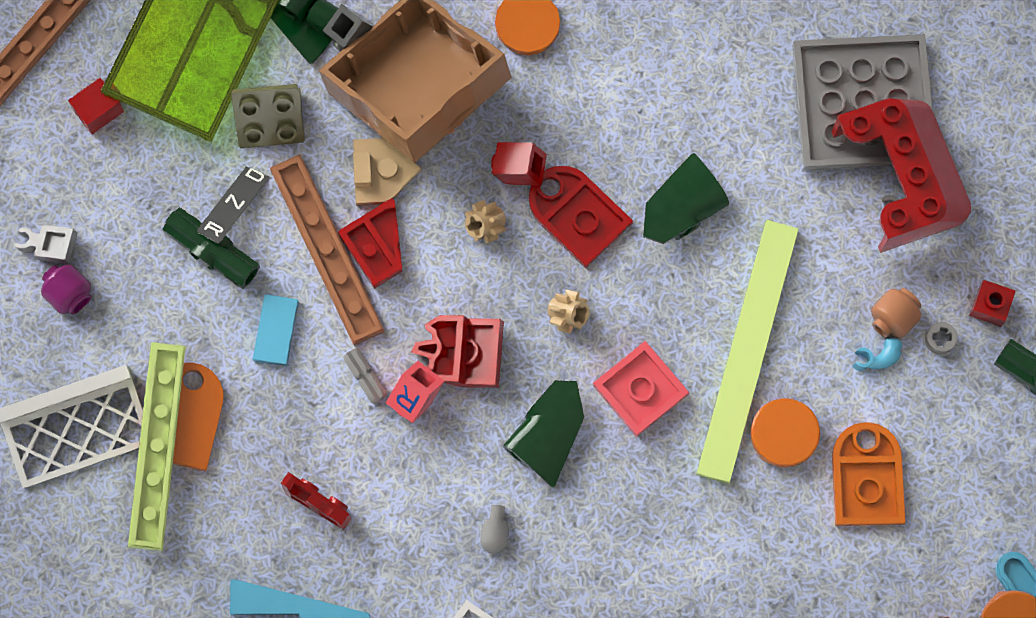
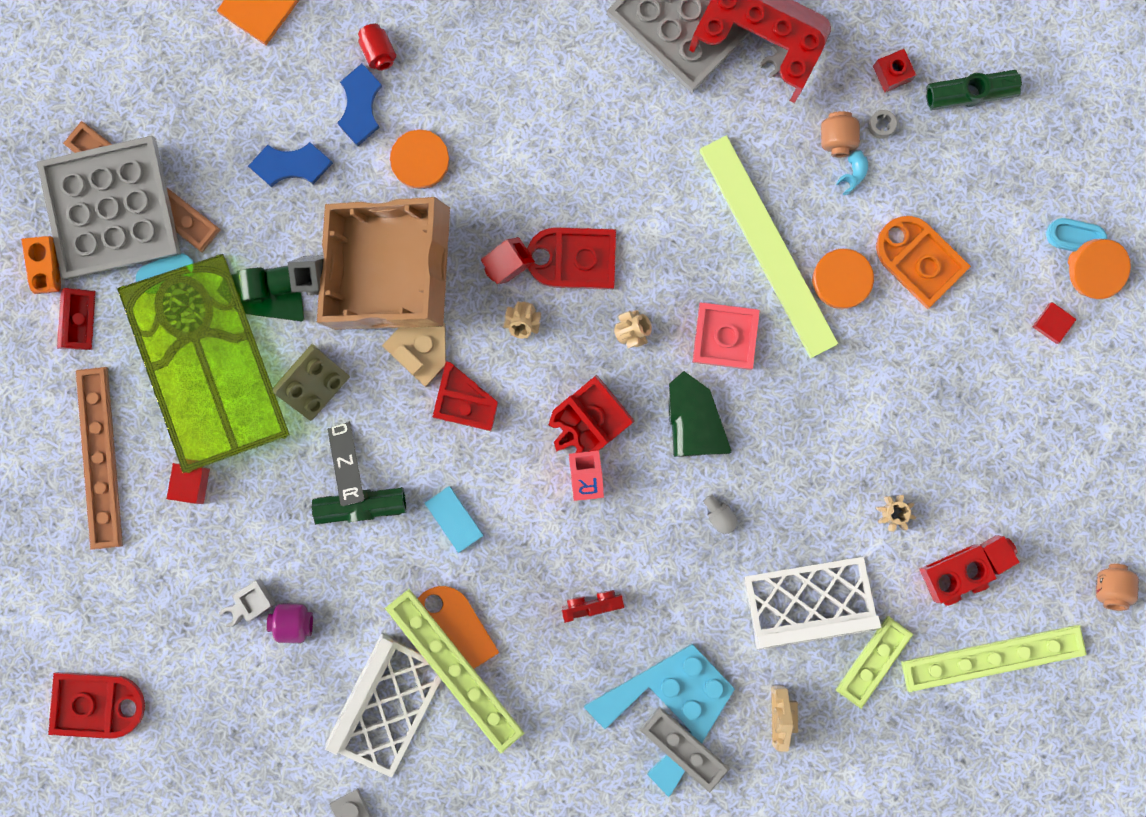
camera: 45 degrees left, 10 degrees up
(327, 250) = (435, 434): nougat tile -> none
(368, 380) = (535, 492): light grey piece -> none
(683, 202) = (637, 186): dark green panel -> none

